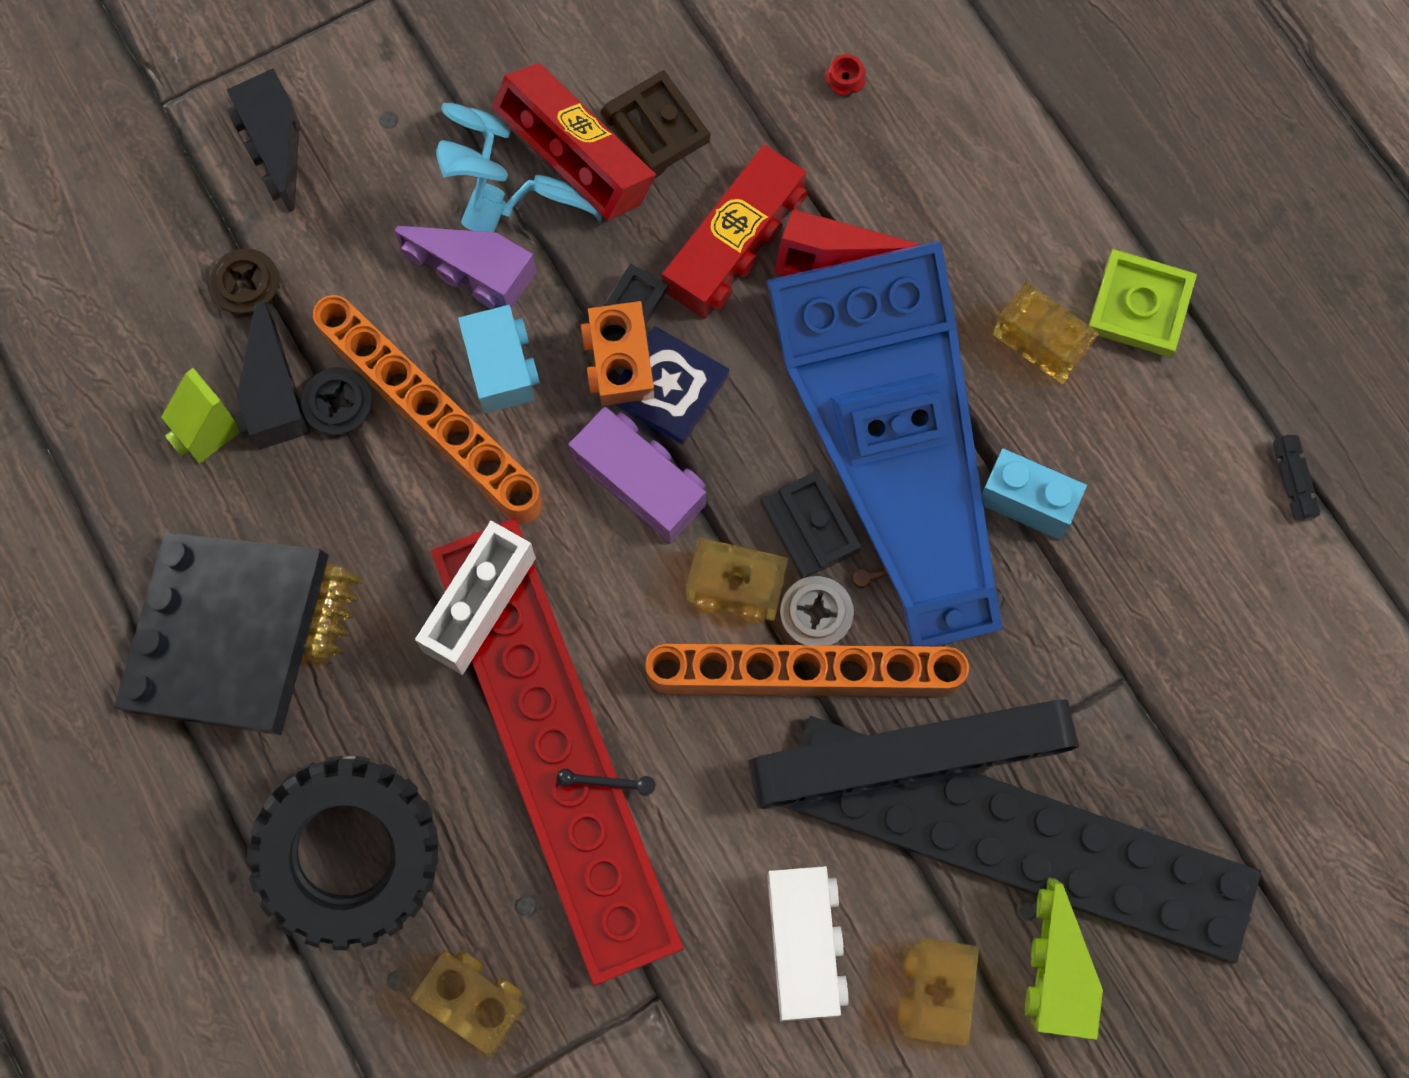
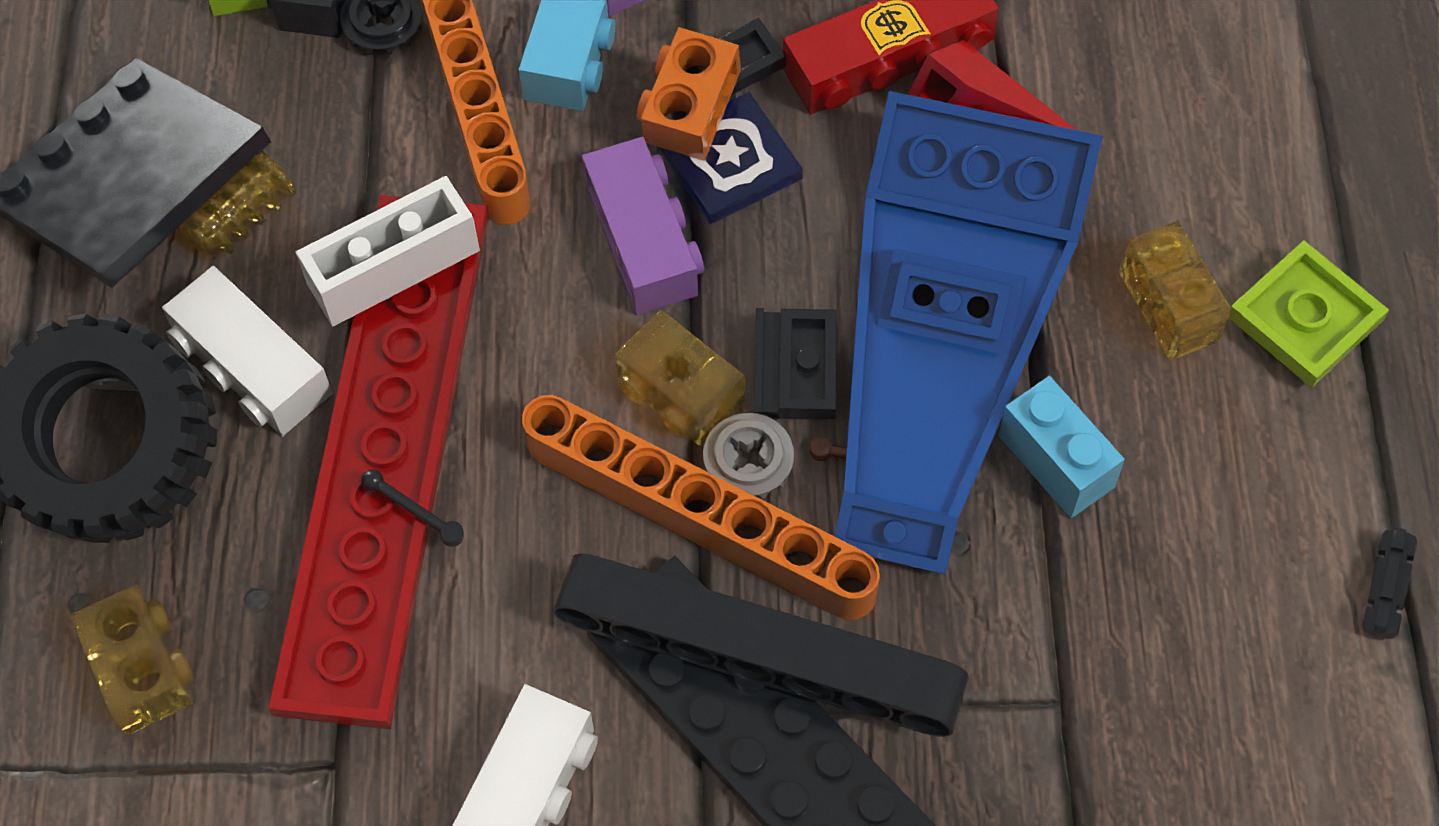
camera: 30 degrees right, 10 degrees down
(404, 726) = (246, 352): none -> white brick

